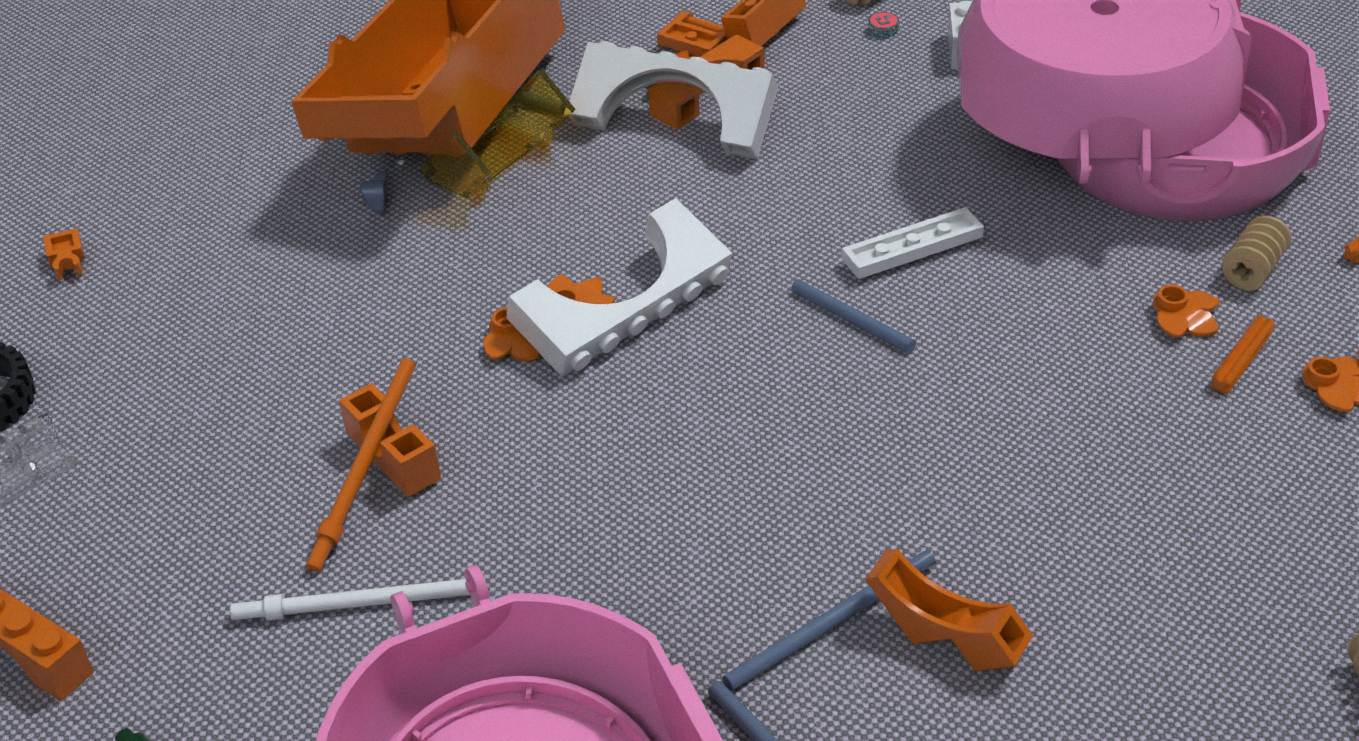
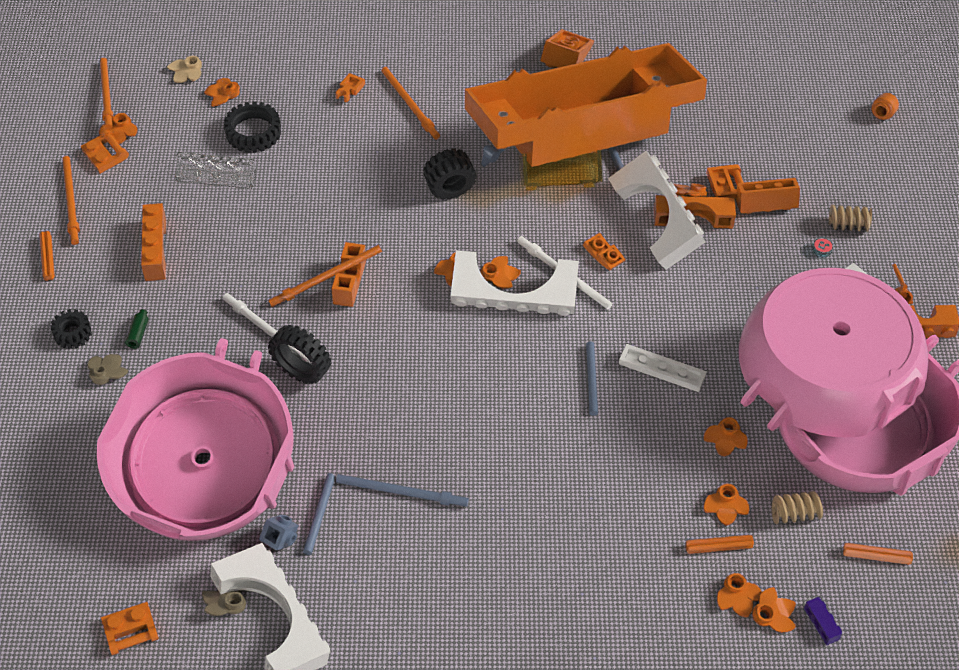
camera: 45 degrees right, 10 degrees up
(238, 220) = (426, 123): none -> orange bar
(309, 38) = (565, 49): none -> orange slope
(366, 234) = (449, 174): none -> black tyre
(463, 538) = (305, 344): none -> black tyre
(583, 245) = (535, 251): none -> white bar
(657, 191) = (605, 254): none -> orange slope
(982, 631) = (431, 525): orange arch -> none
(1079, 252) = (725, 439): none -> orange plate

